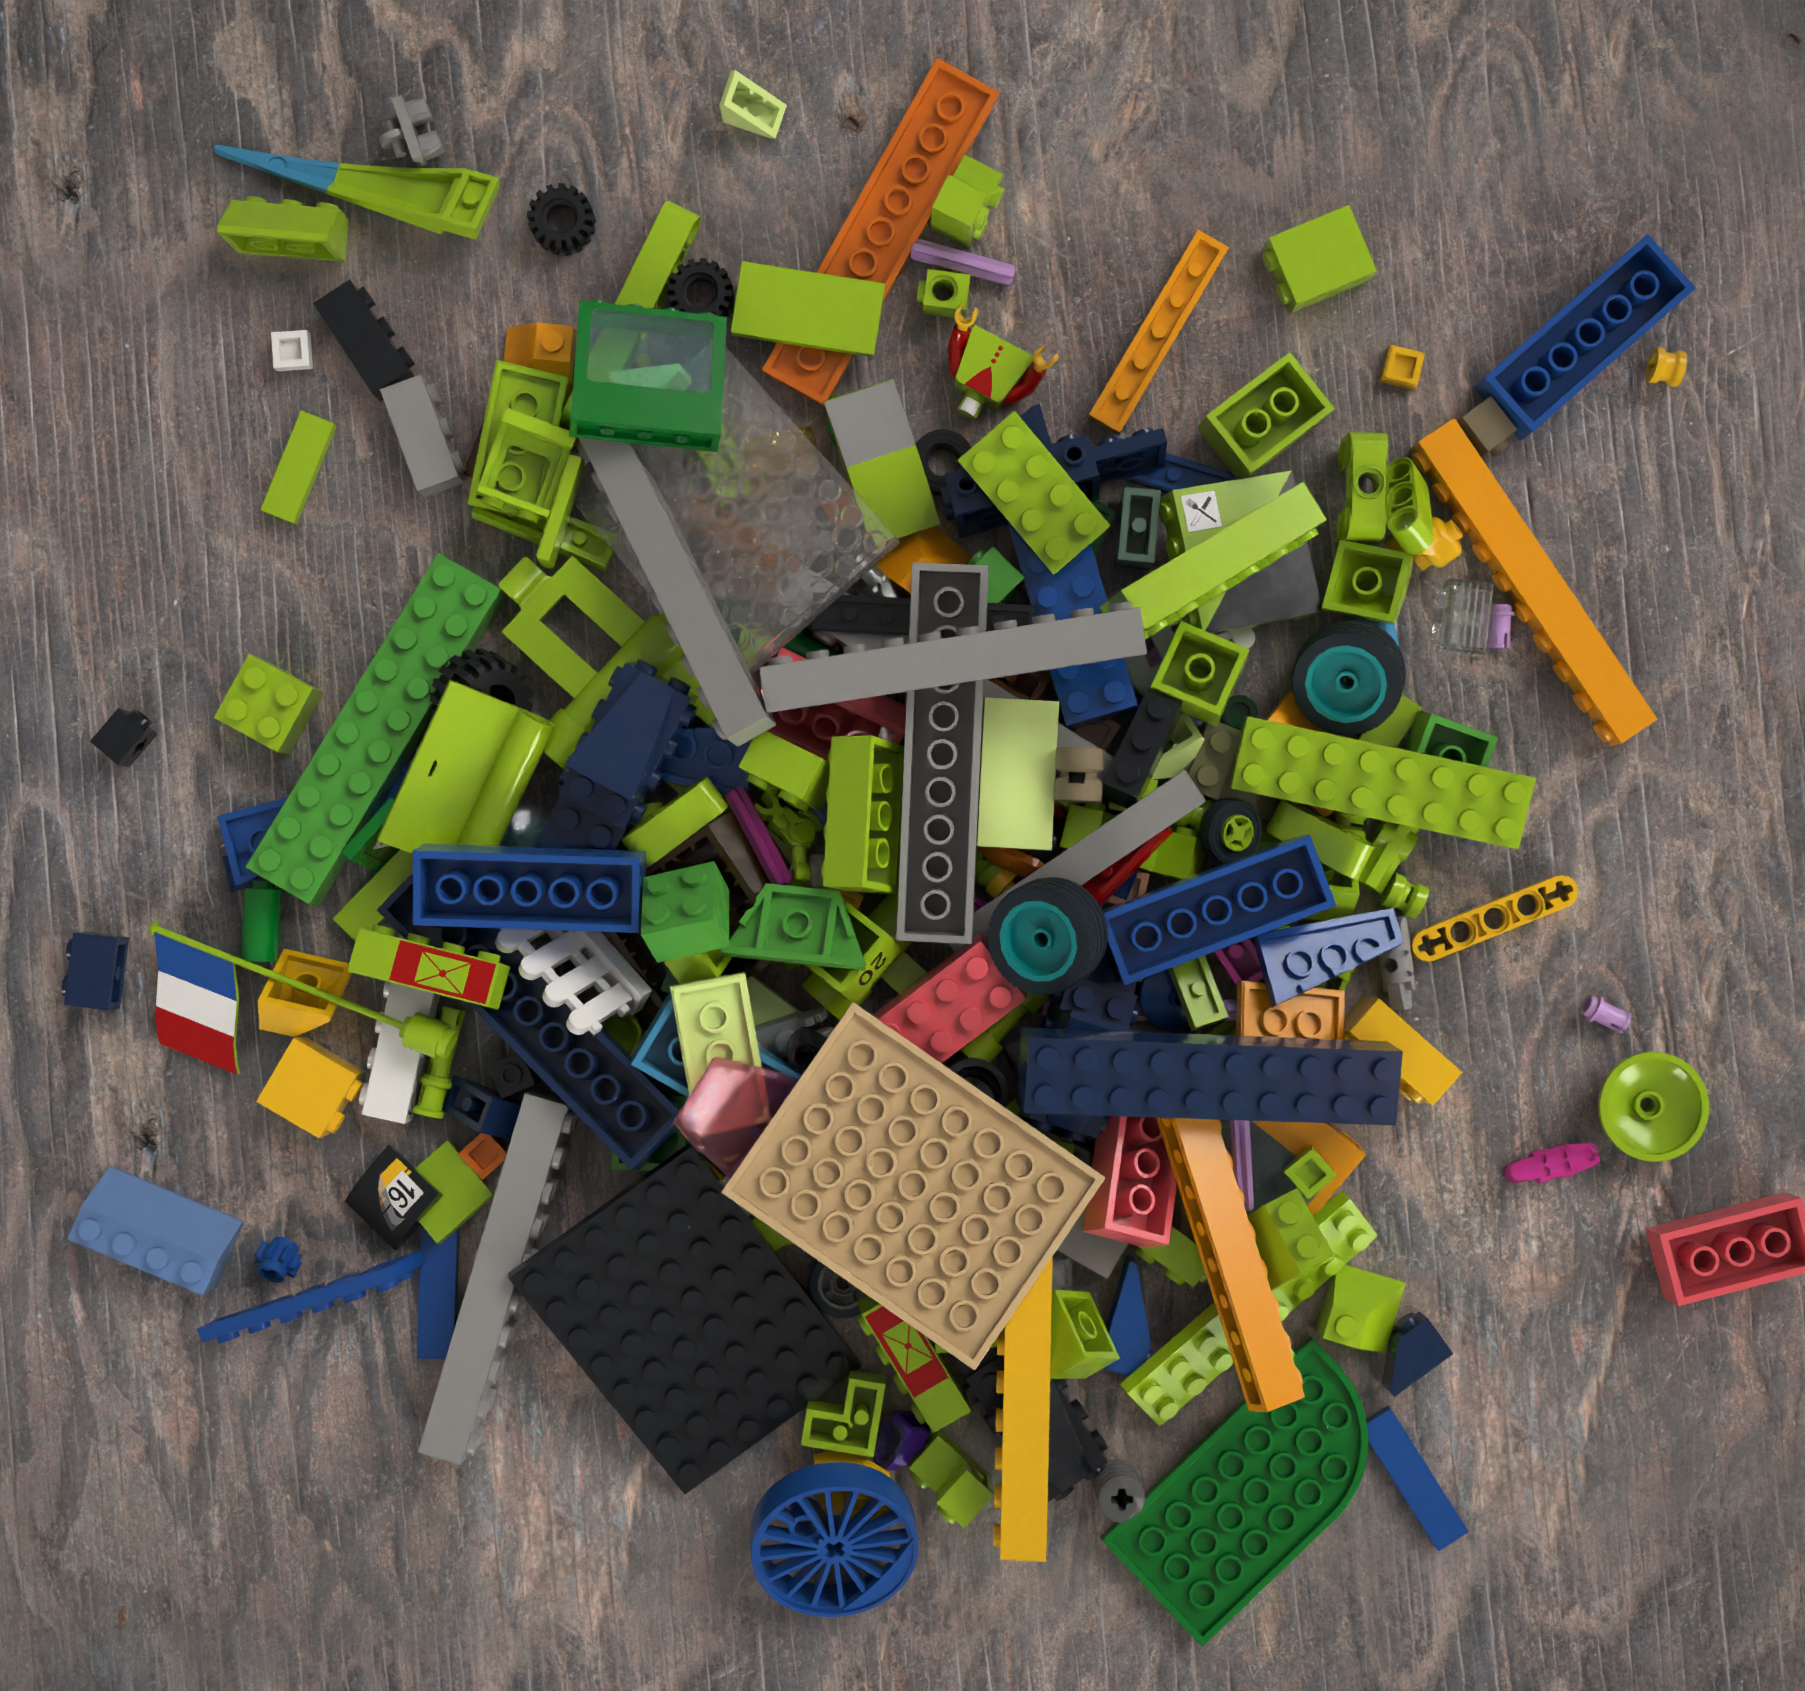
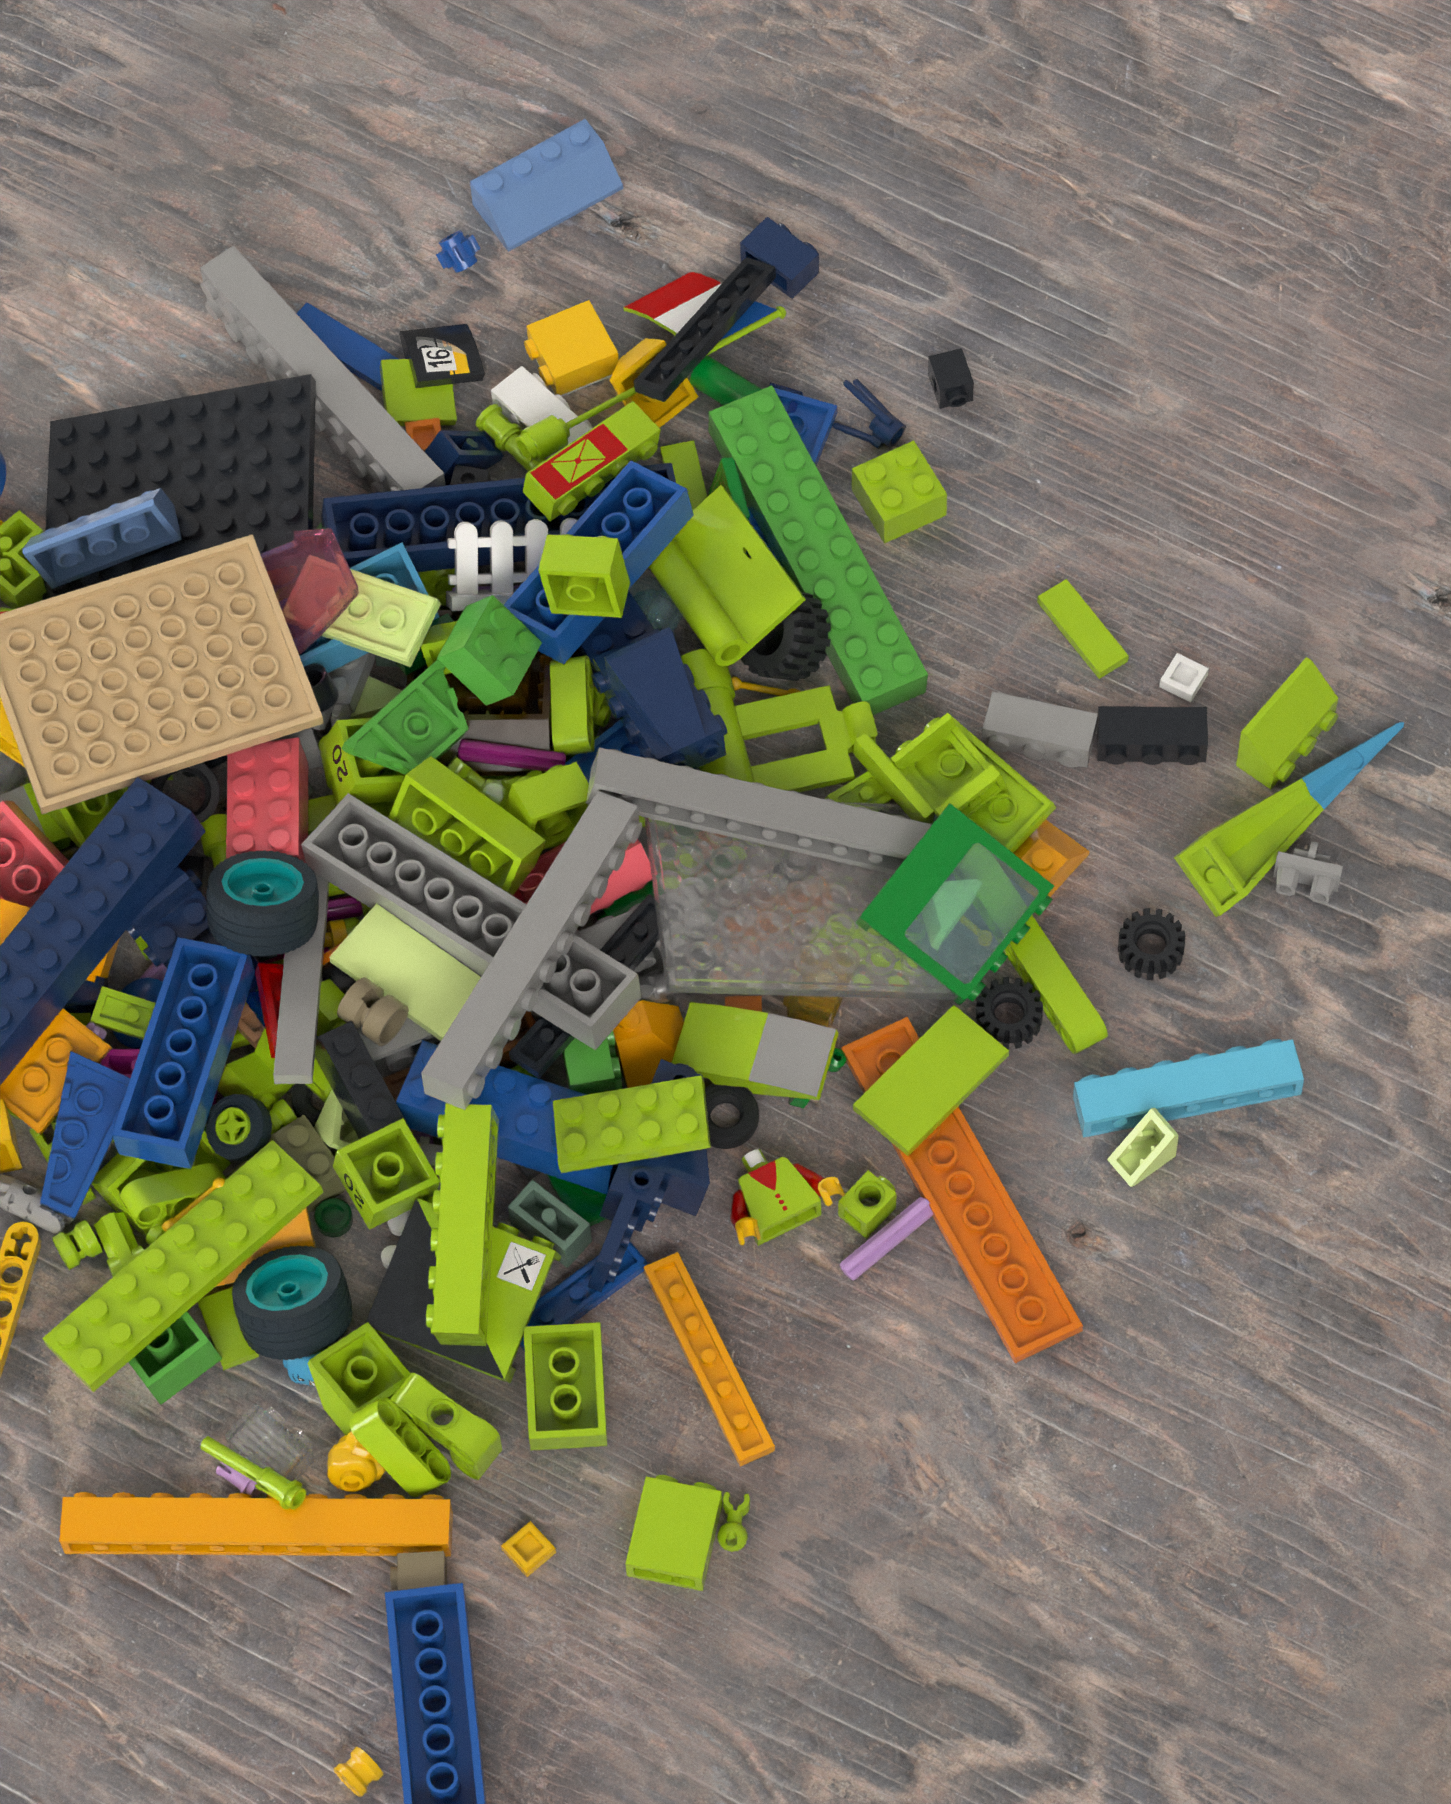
camera: 135 degrees right, 25 degrees down
(207, 762) = (885, 426): none -> dark blue plant
(221, 974) = (704, 329): none -> black plate
(318, 1298) = (406, 257): blue wing -> none
(535, 700) = (737, 684): none -> yellow hinge
(570, 864) = (584, 575): none -> lime brick
(672, 106) = (1188, 1087): none -> medium azure brick
(782, 1347) = (104, 538): none -> medium blue slope
(965, 201) = (932, 1261): lime brick -> none
(1284, 219) = (733, 1535): none -> lime arm
(1296, 805) = (217, 1183): none -> yellow hinge
(1502, 589) = (287, 1492): none -> lime pin

